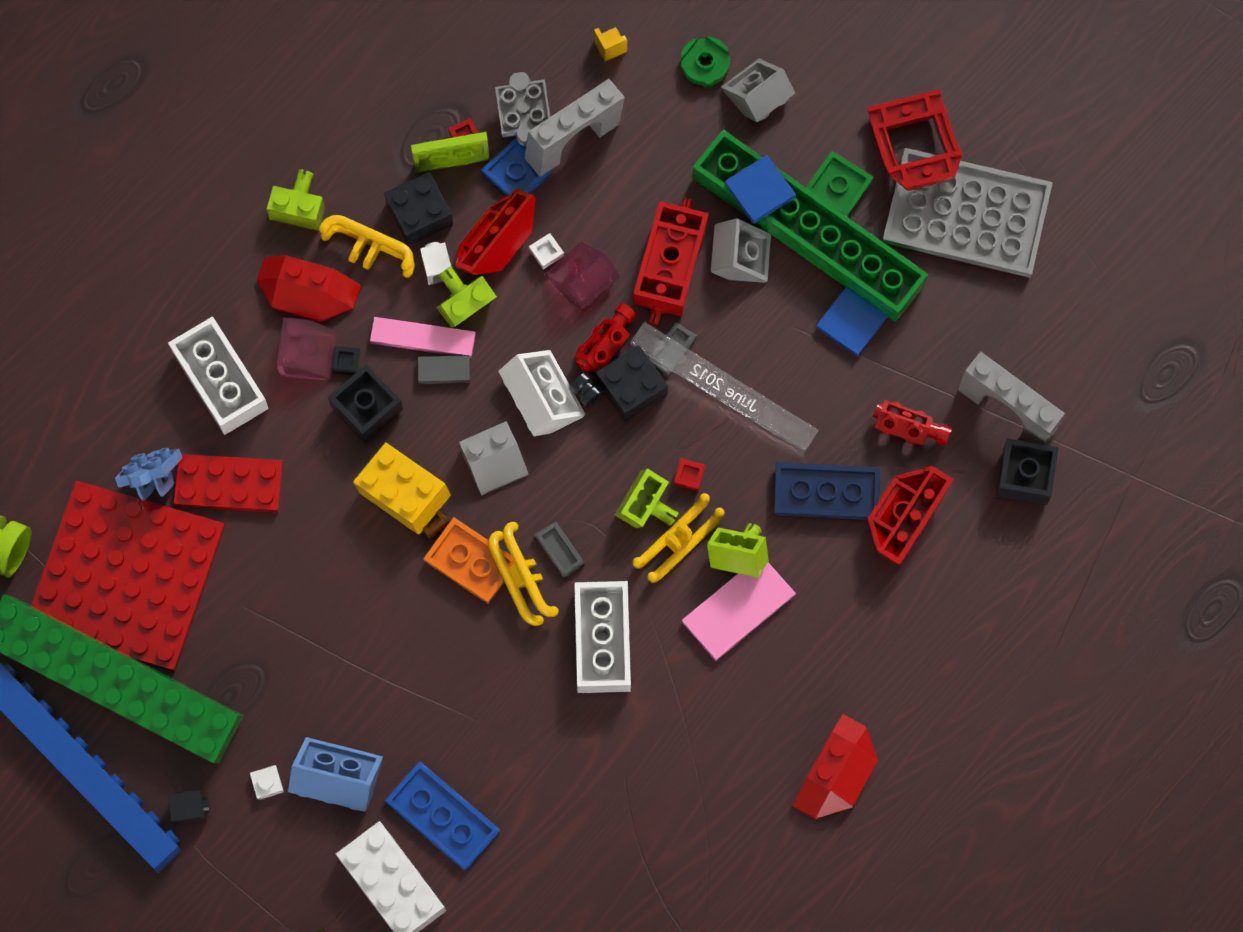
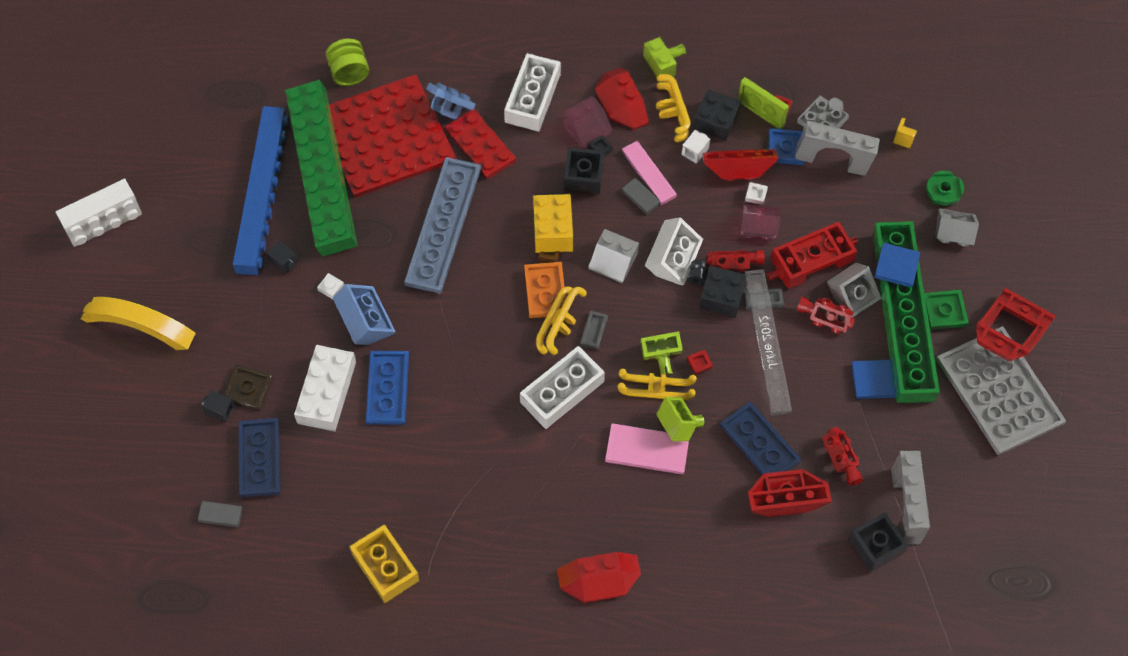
camera: 50 degrees right, 10 degrees down
(297, 603) = (442, 225): none -> sand blue plate
(464, 298) = (688, 173): lime brick -> none
(746, 302) = (831, 317): none -> red brick

